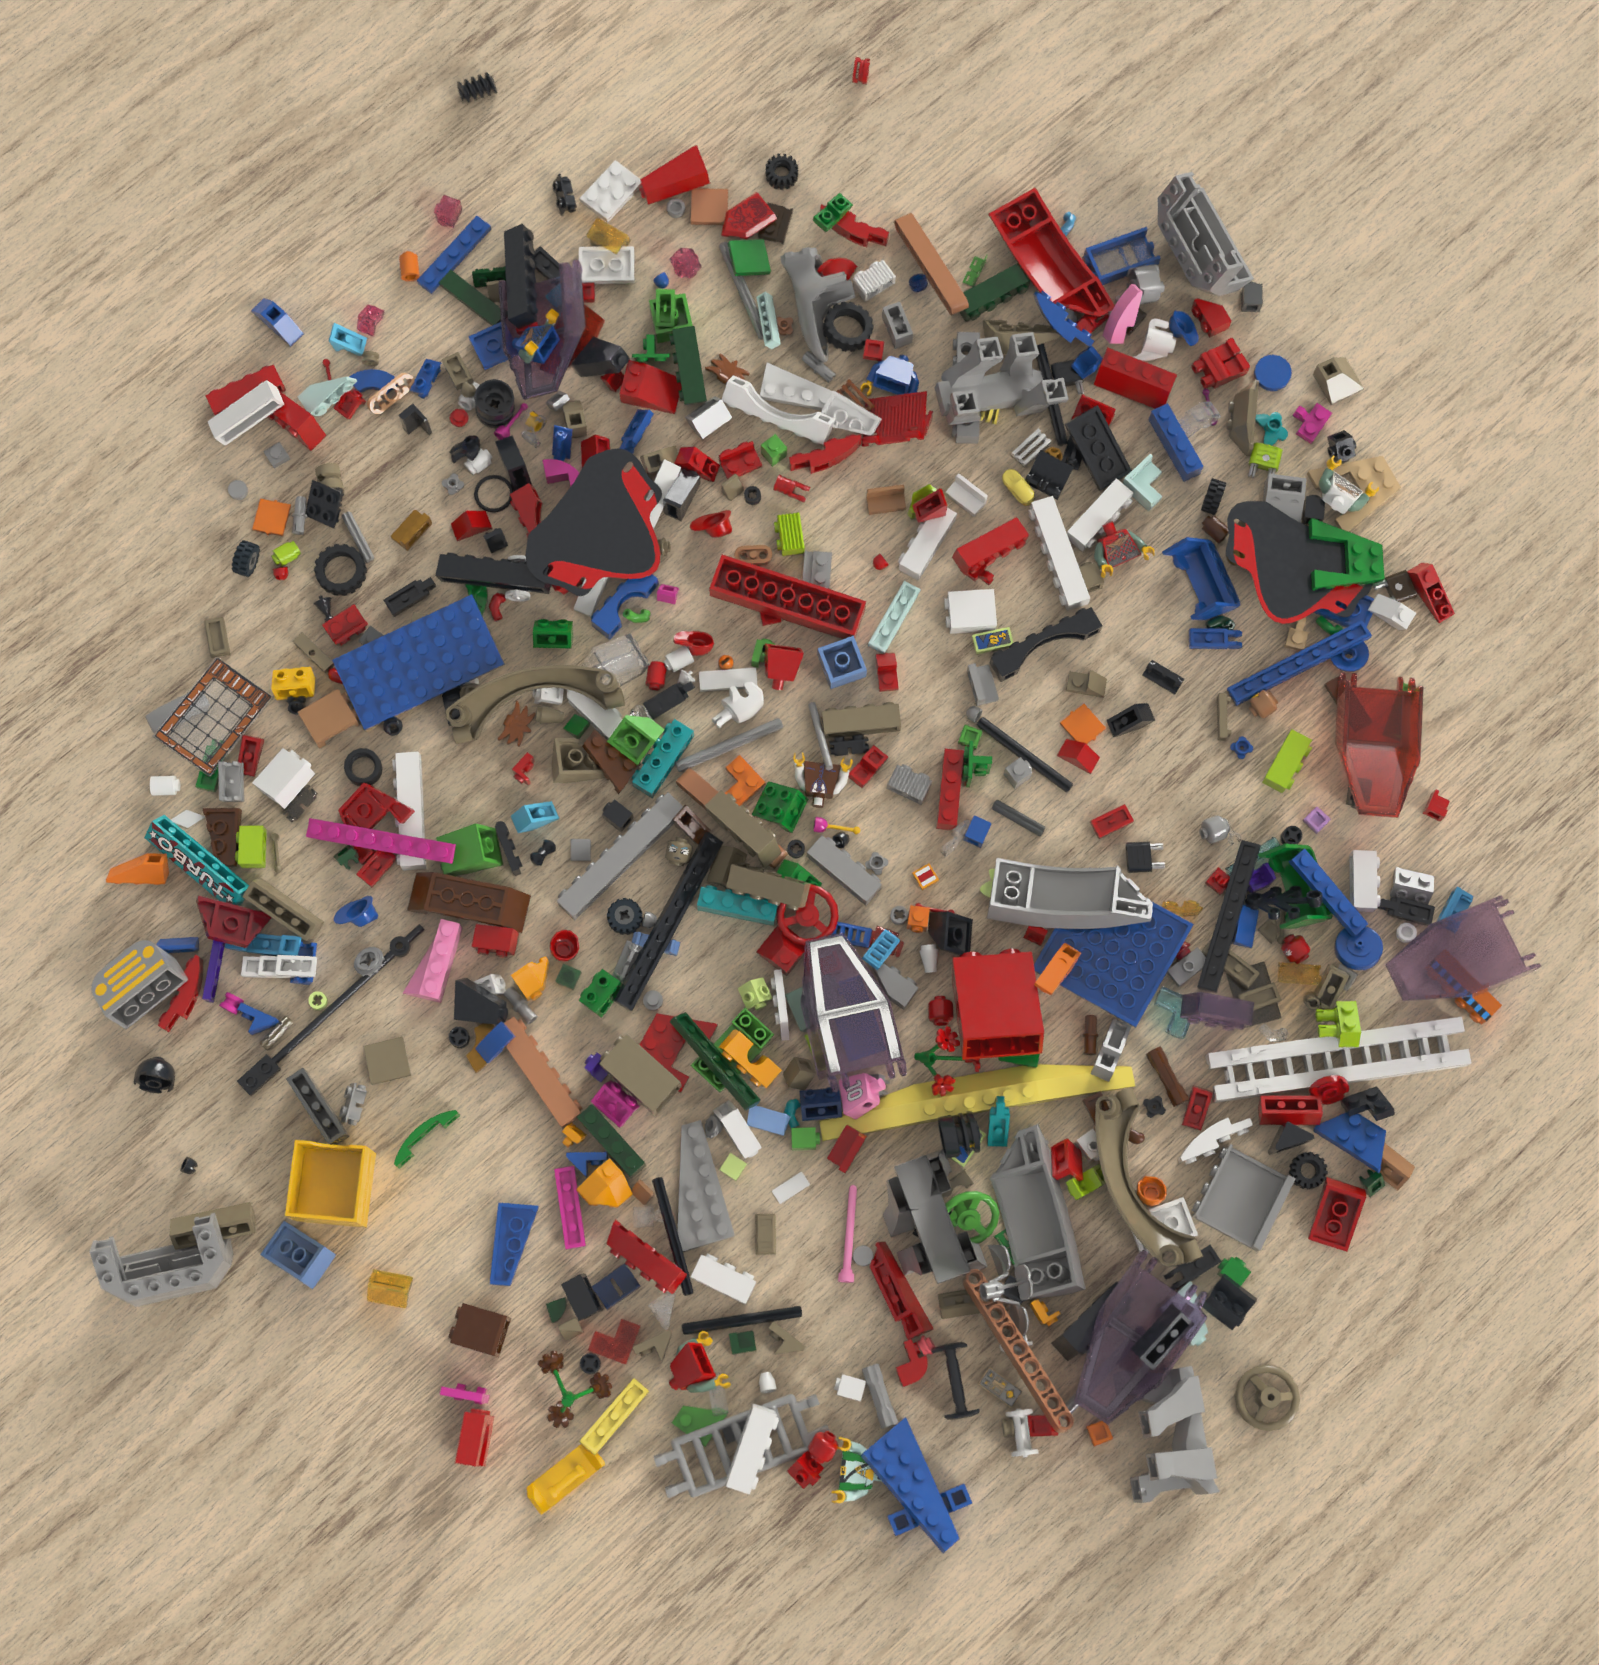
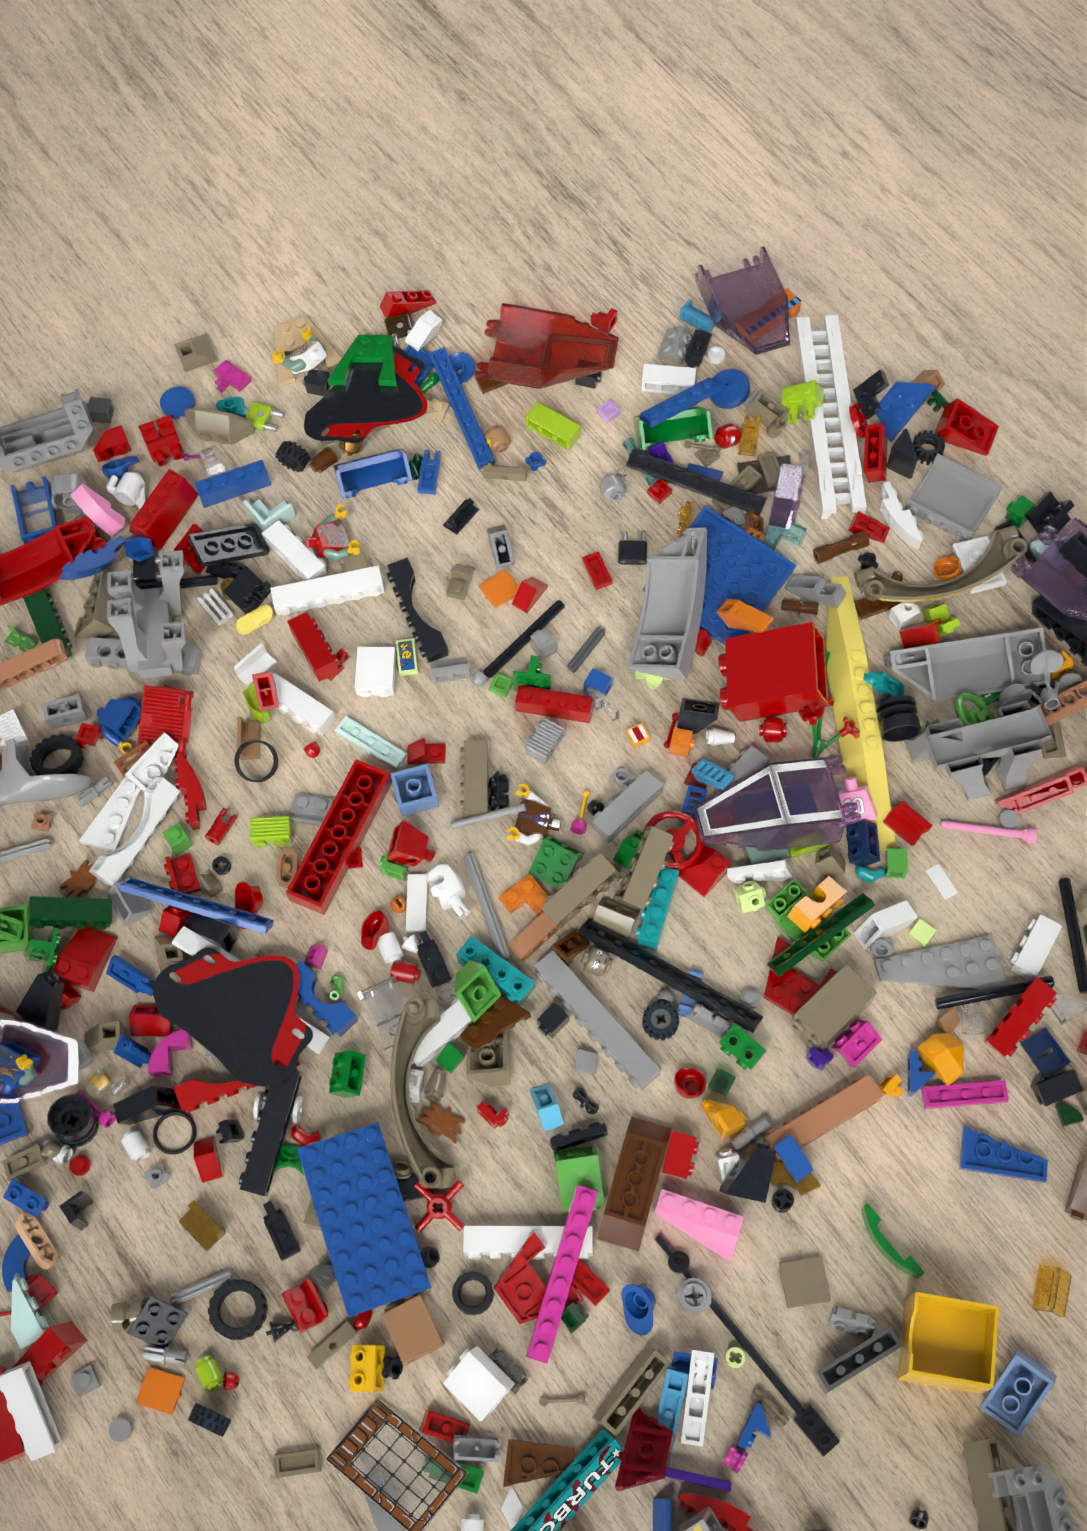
camera: 80 degrees left, 10 degrees down
(251, 846) = (556, 1426): lime brick -> none
(436, 730) = (439, 1214): none -> red bar
(469, 447) = (118, 1158): black plate -> none
(611, 1141) = (897, 1046): dark green brick -> none
(703, 476) = (196, 905): none -> blue tile
(765, 1234) = (988, 908): dark tan tile -> none
(768, 320) = (33, 833): light aqua piece -> none
(768, 1120) = (879, 892): light blue slope -> none
(792, 844) = (597, 845): black bush -> none
(868, 766) = (519, 774): red slope -> none
(877, 507) = (275, 760): none -> black tyre
(899, 921) = (676, 755): light grey bush -> none
(918, 282) = (22, 692): clear blue tile -> none
(1169, 979) = (751, 523): none -> dark orange tile
(1282, 900) = (683, 457): black plant -> none
(1285, 494) = (299, 399): light grey slope -> none
(1294, 833) = (624, 425): black wheel -> none
(1341, 446) = (260, 353): black brick -> none

